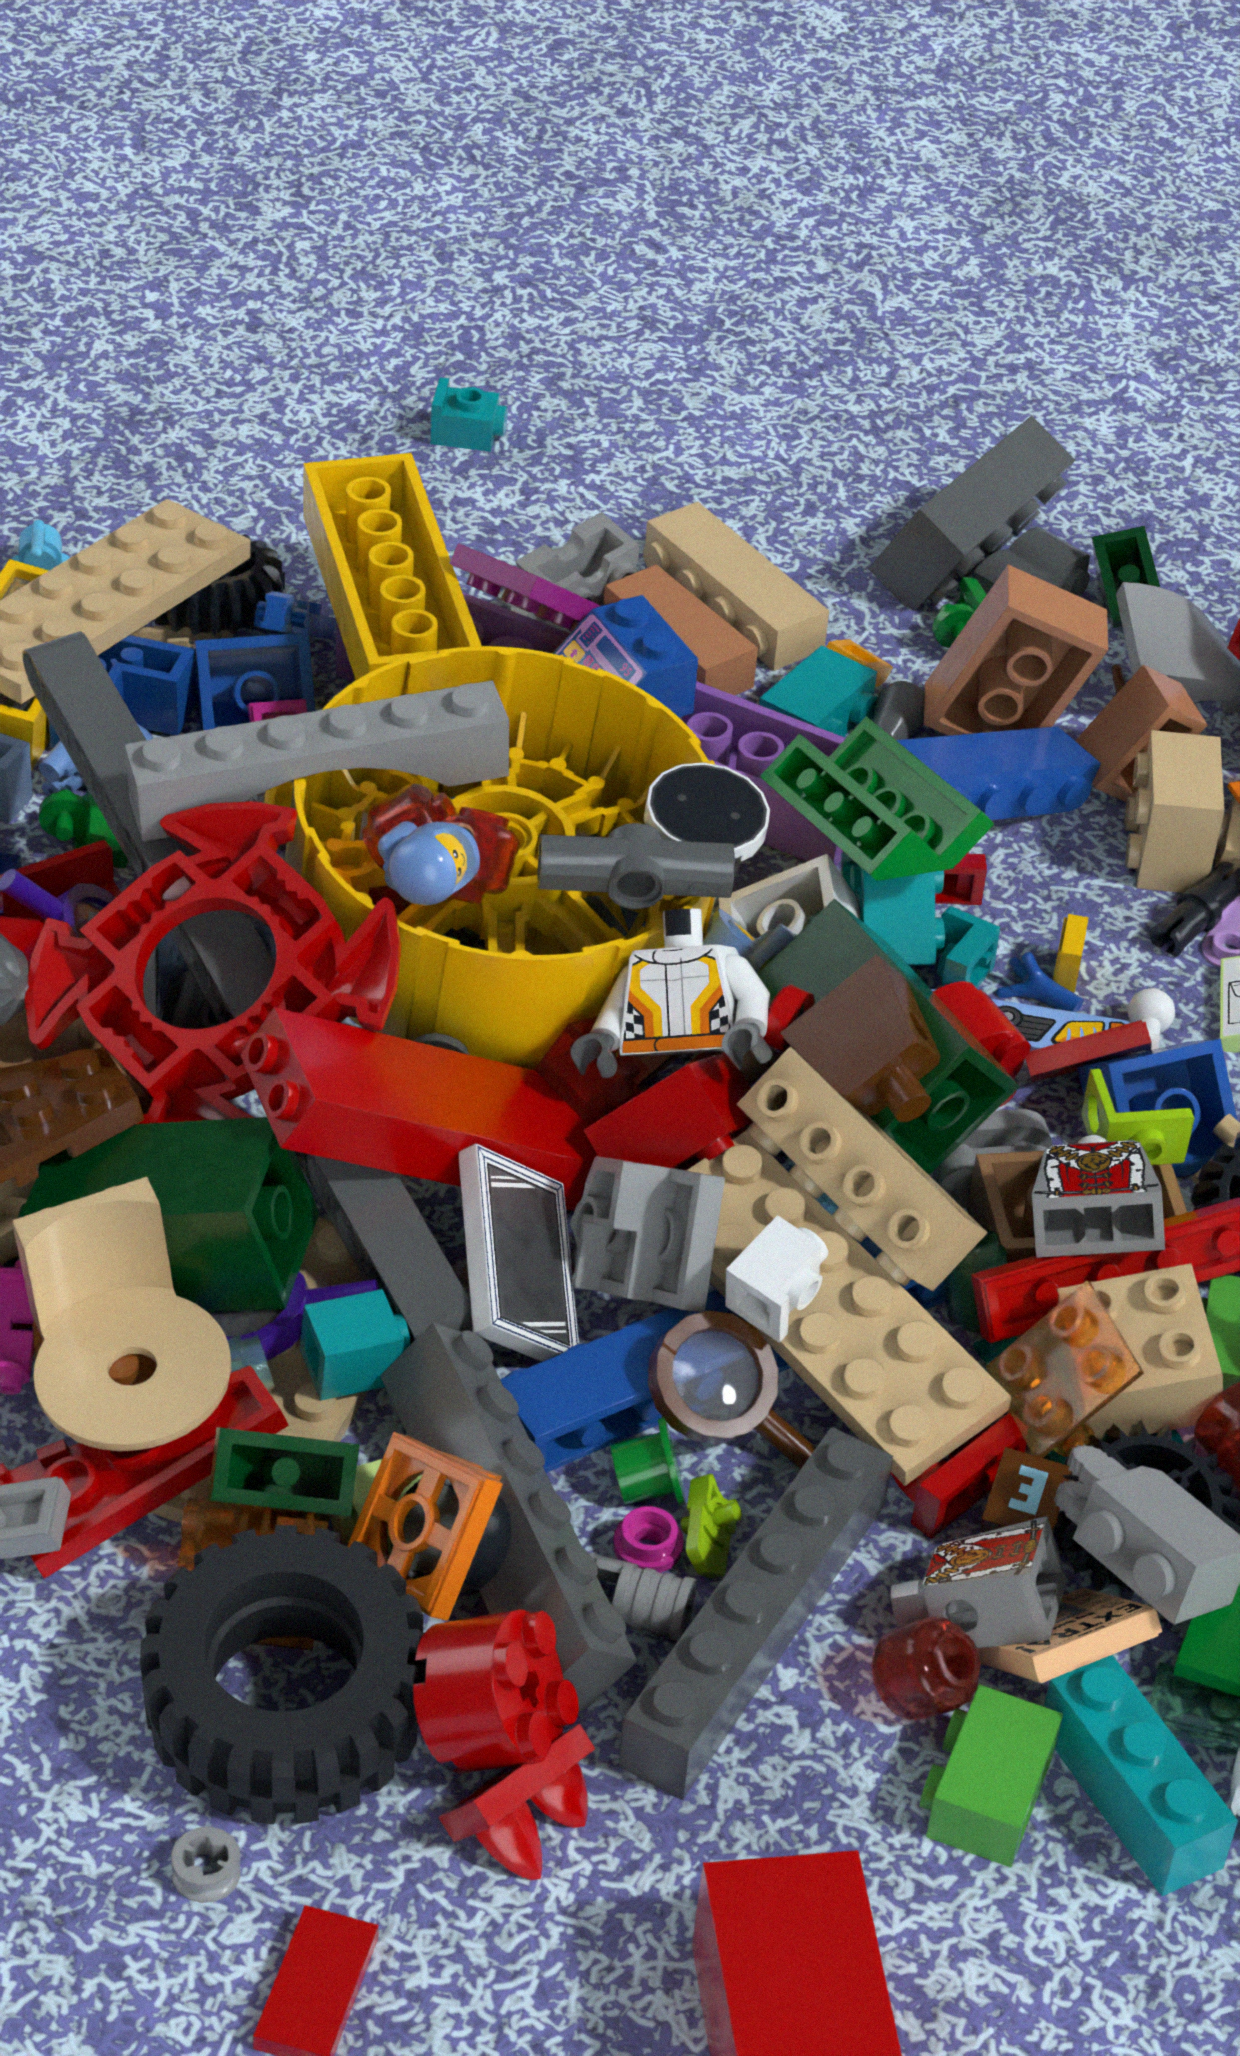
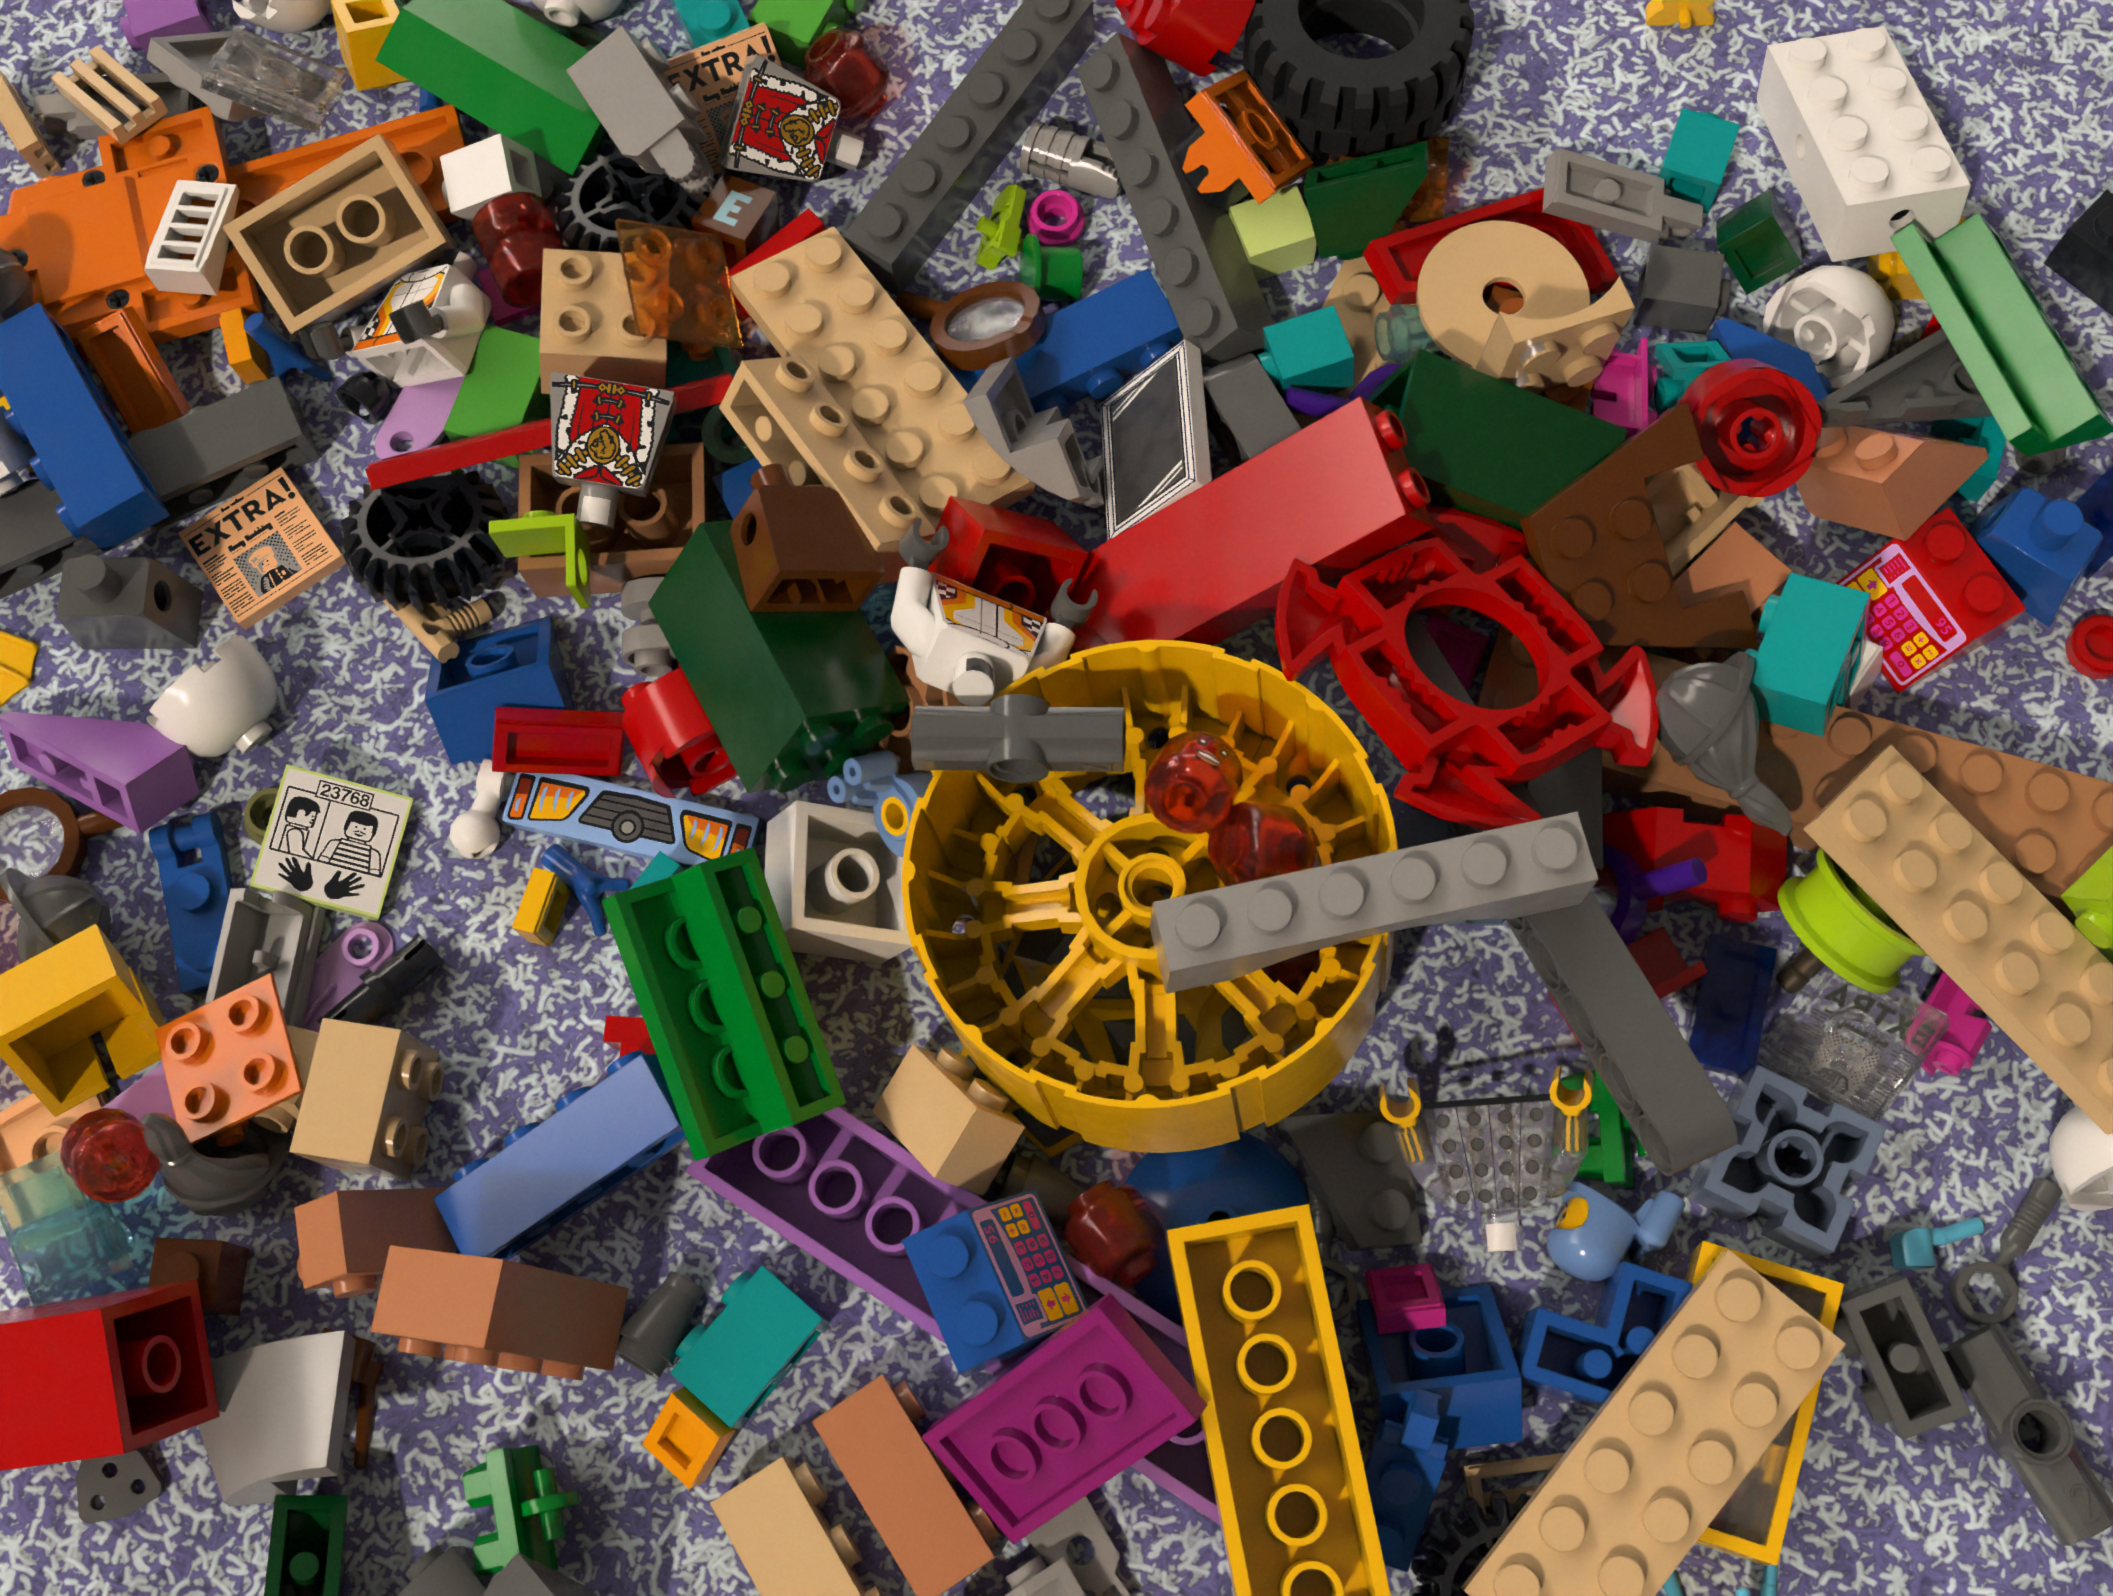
camera: 165 degrees left, 30 degrees up
(428, 860) = (1250, 716): medium blue piece -> none
(708, 806) = (930, 839): black tile -> none
(775, 1276) = (925, 346): white brick -> none
(784, 1010) = (871, 611): red tile -> none

